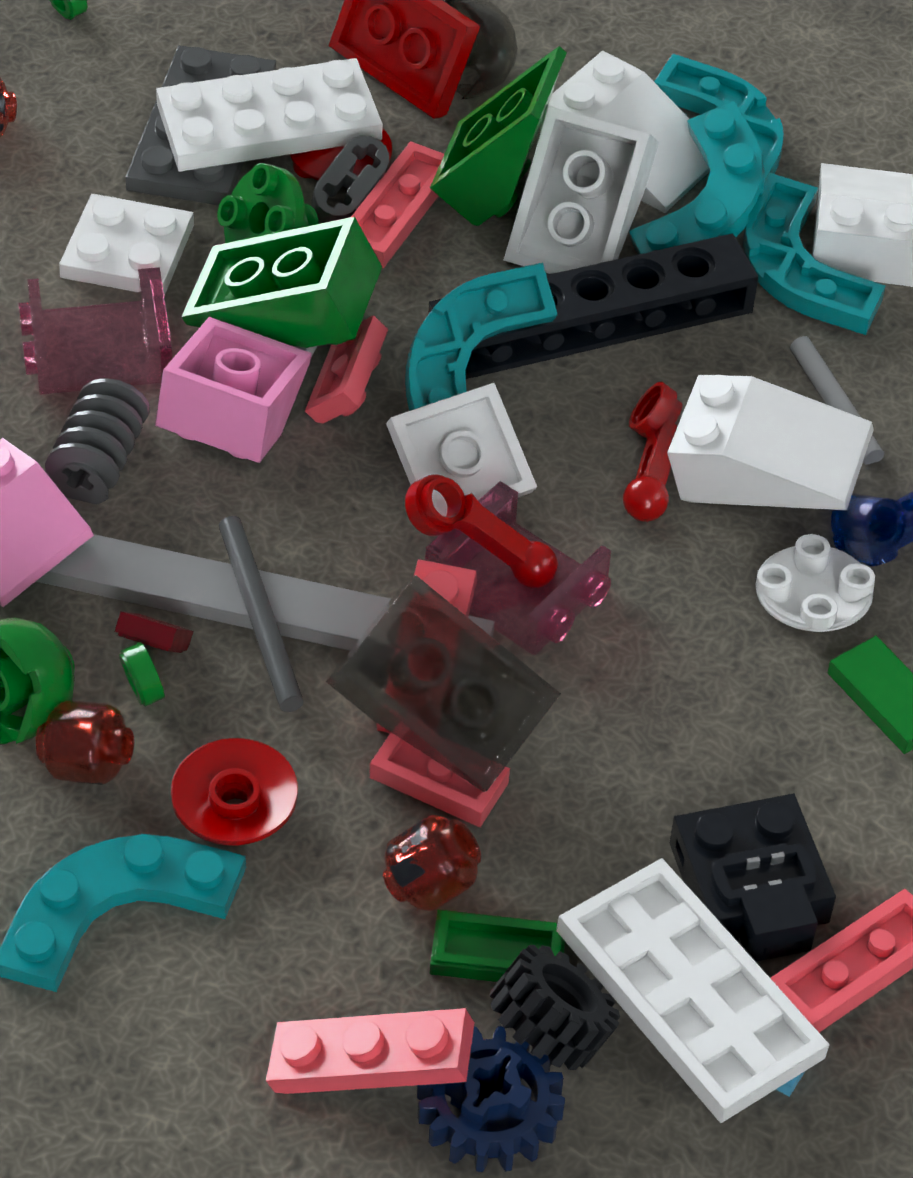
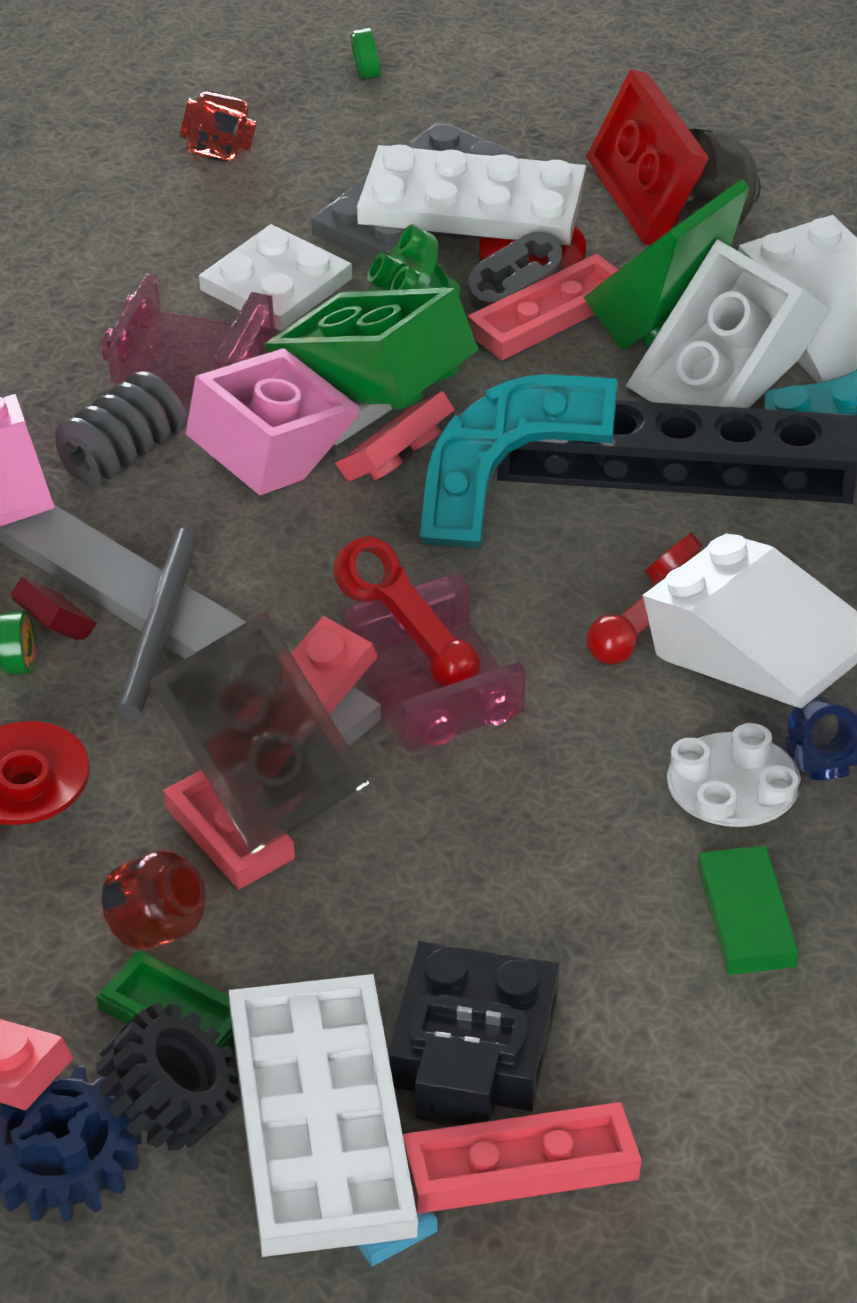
camera: 30 degrees right, 5 degrees down
(464, 441) = (450, 529): white plate -> none

